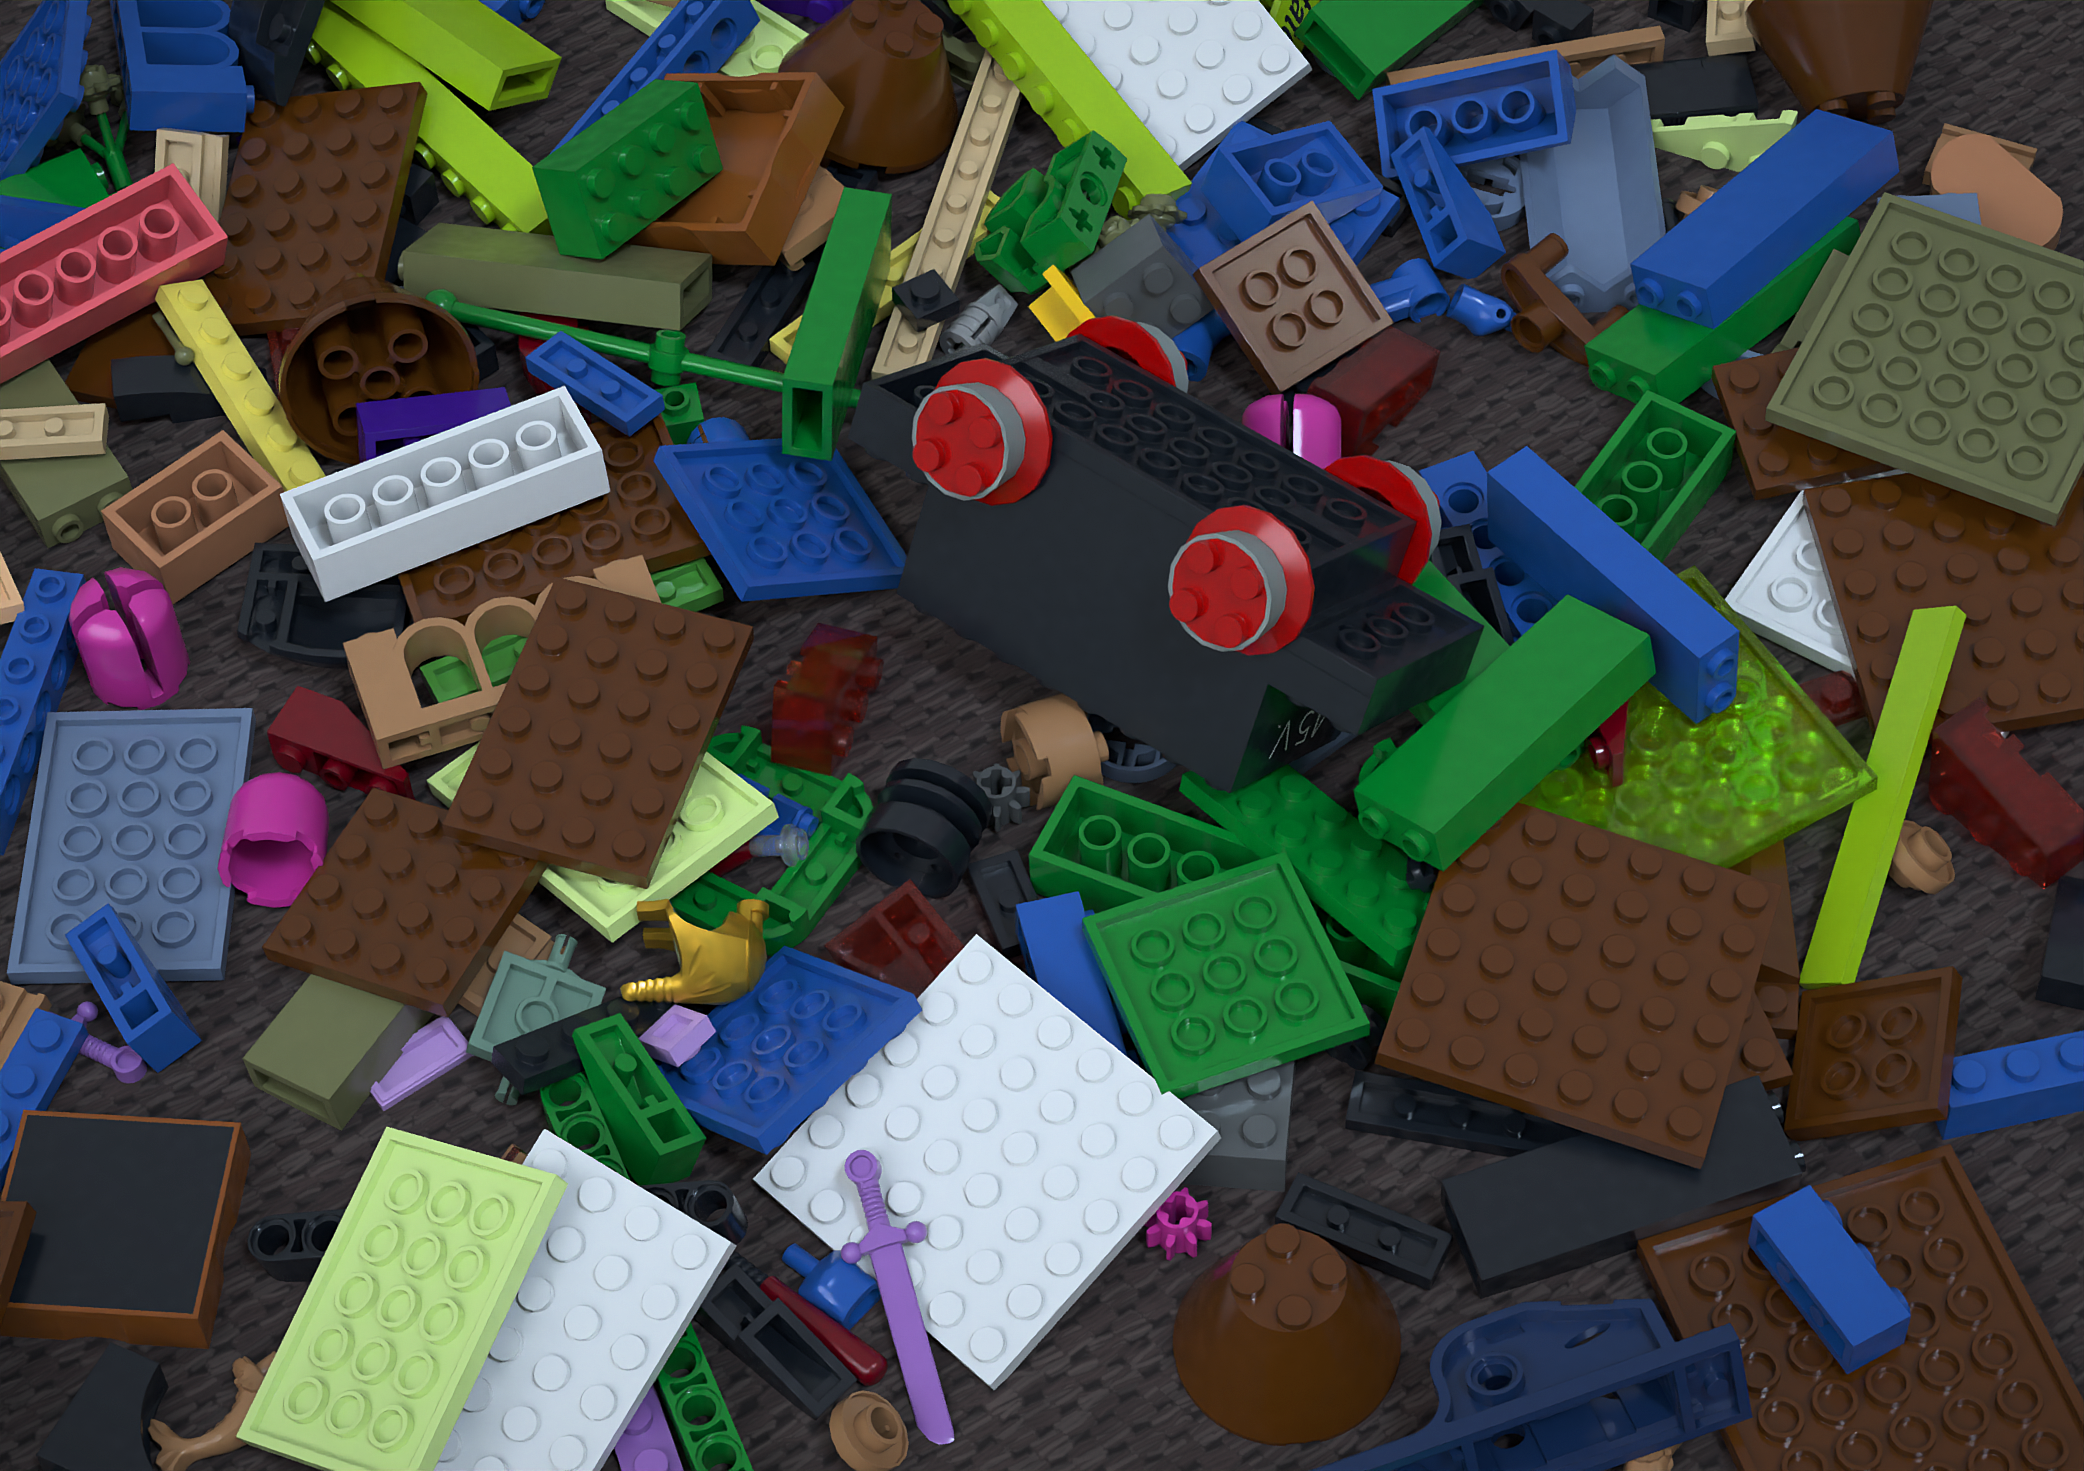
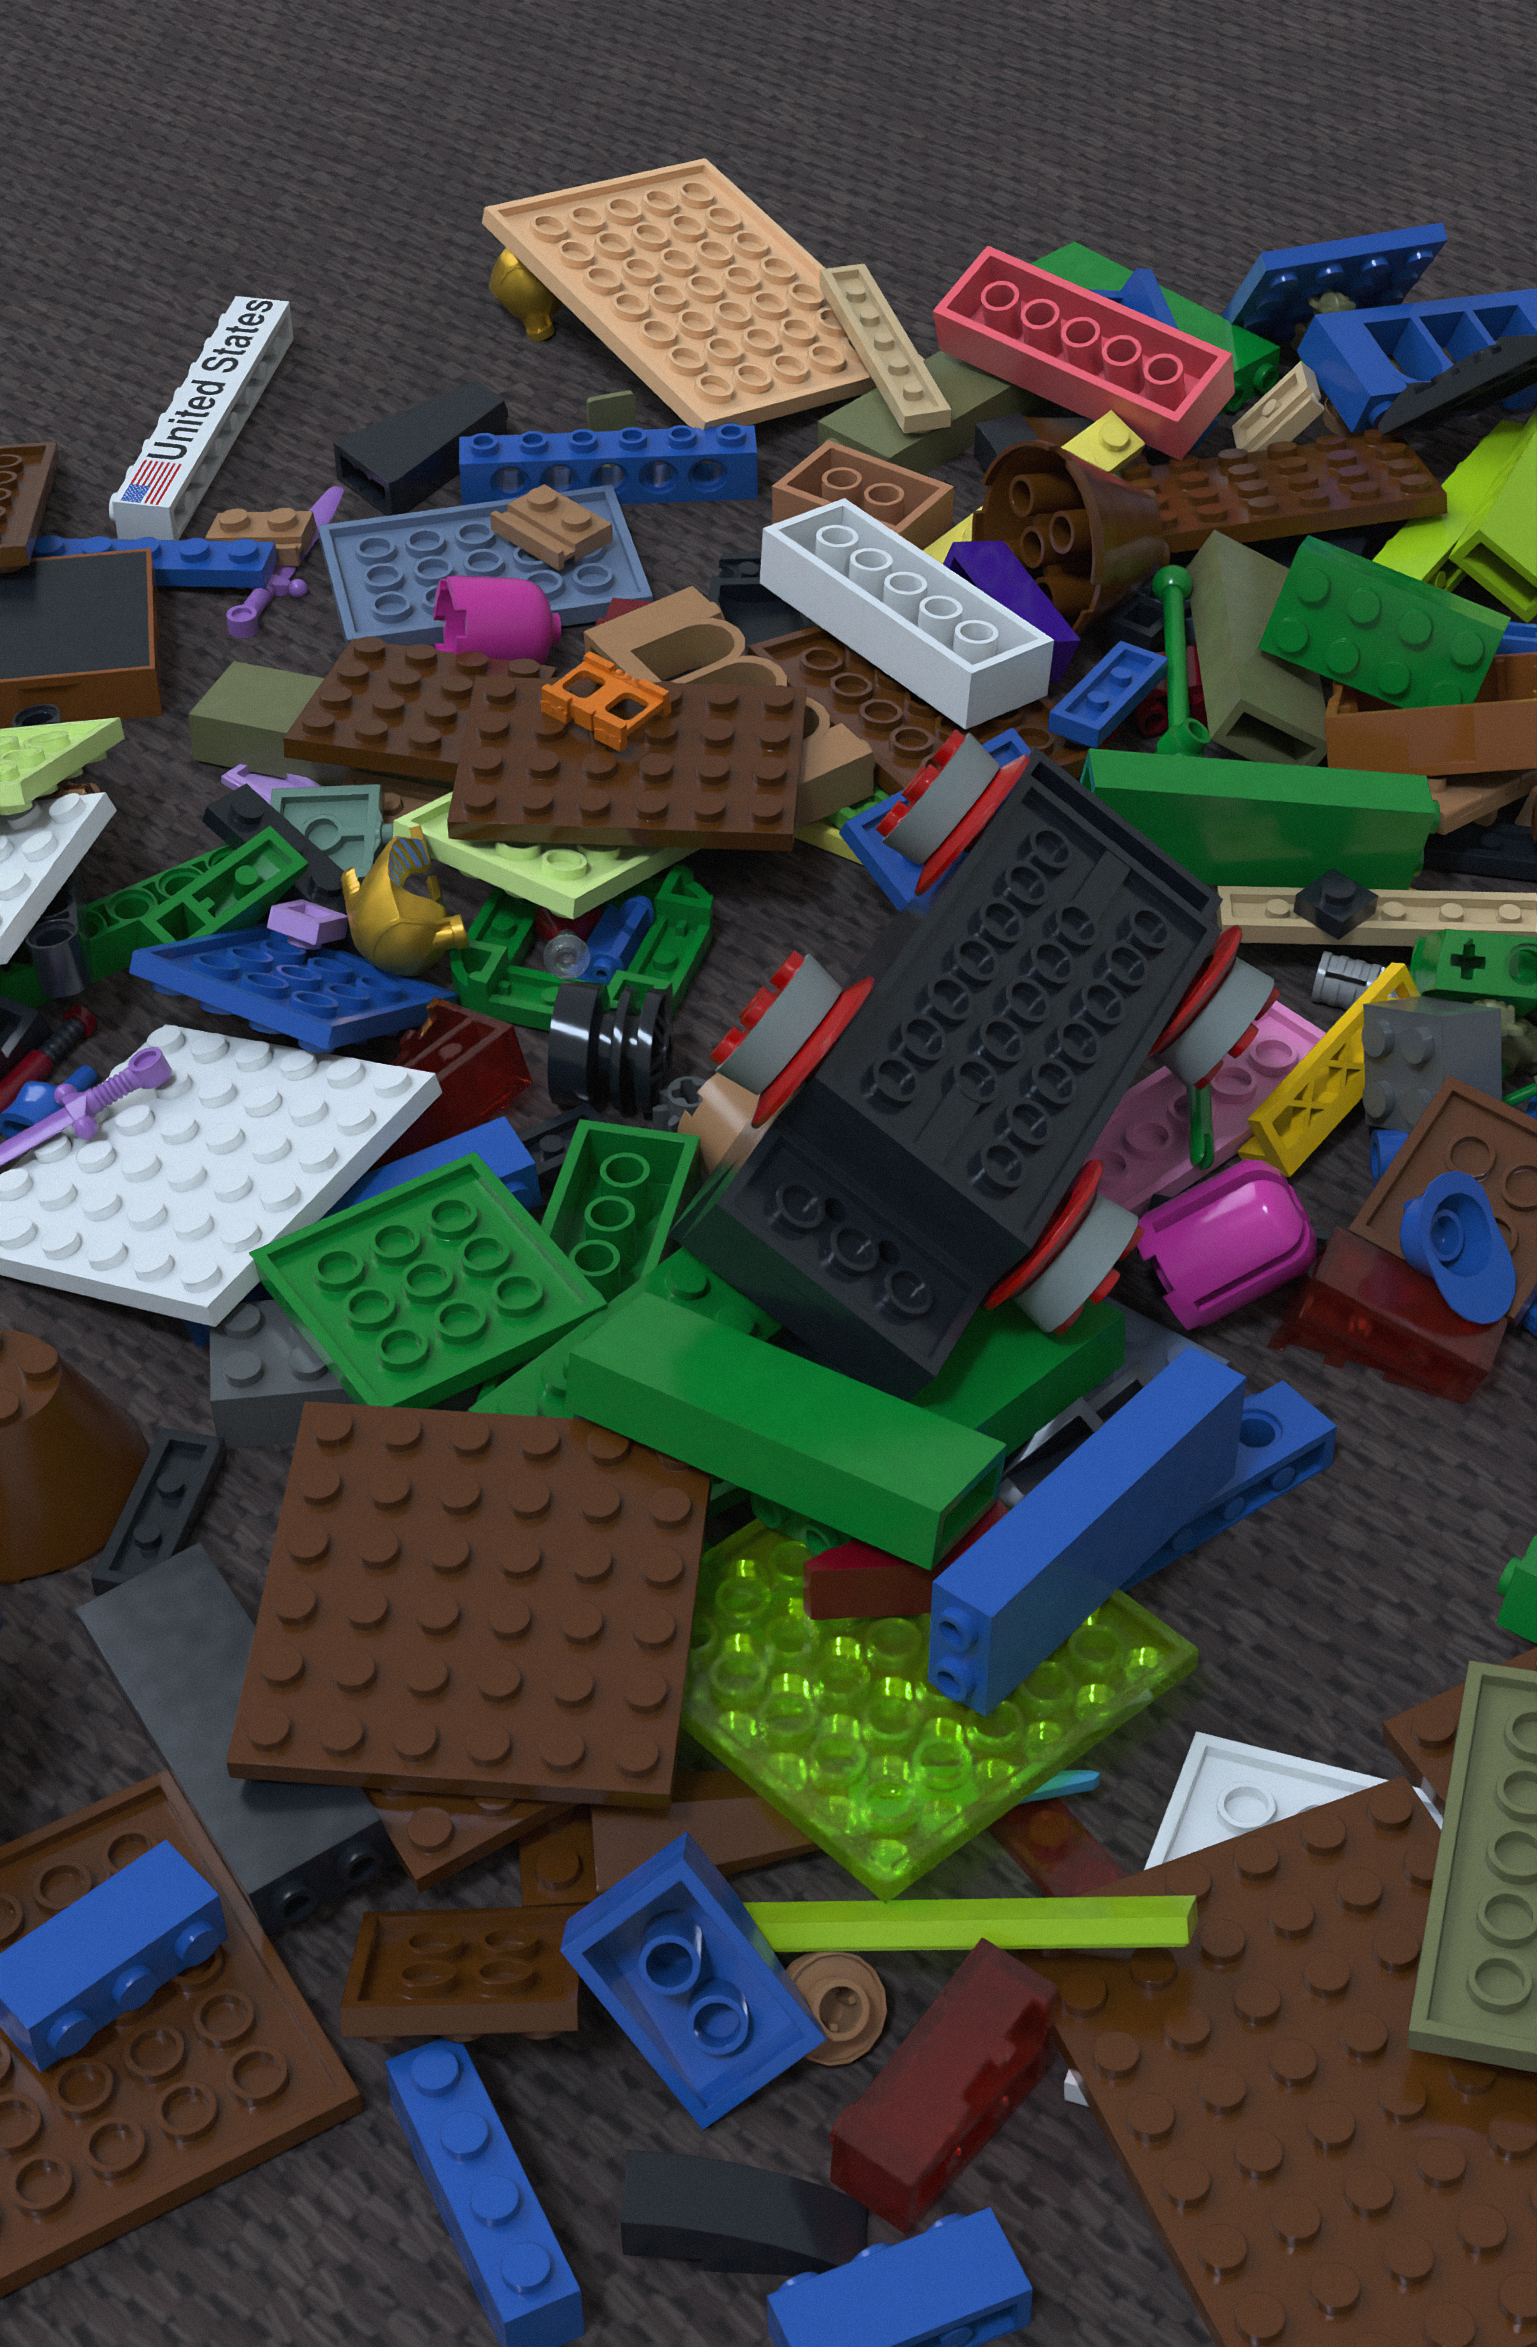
camera: 75 degrees right, 10 degrees down
(112, 768) = (551, 527): none -> medium nougat plate
(117, 639) = (693, 494): dark pink cylinder -> none
(132, 989) = (298, 592): blue slope -> none
(555, 730) = (592, 711): none -> orange piece
(824, 698) = (745, 931): clear red wedge -> none
(1180, 1237) = (146, 1349): dark pink gear -> none
(1346, 326) = (1458, 1243): none -> blue piece
(1659, 471) = (1336, 1608): green brick -> none
(1907, 916) = (691, 1980): none -> blue slope

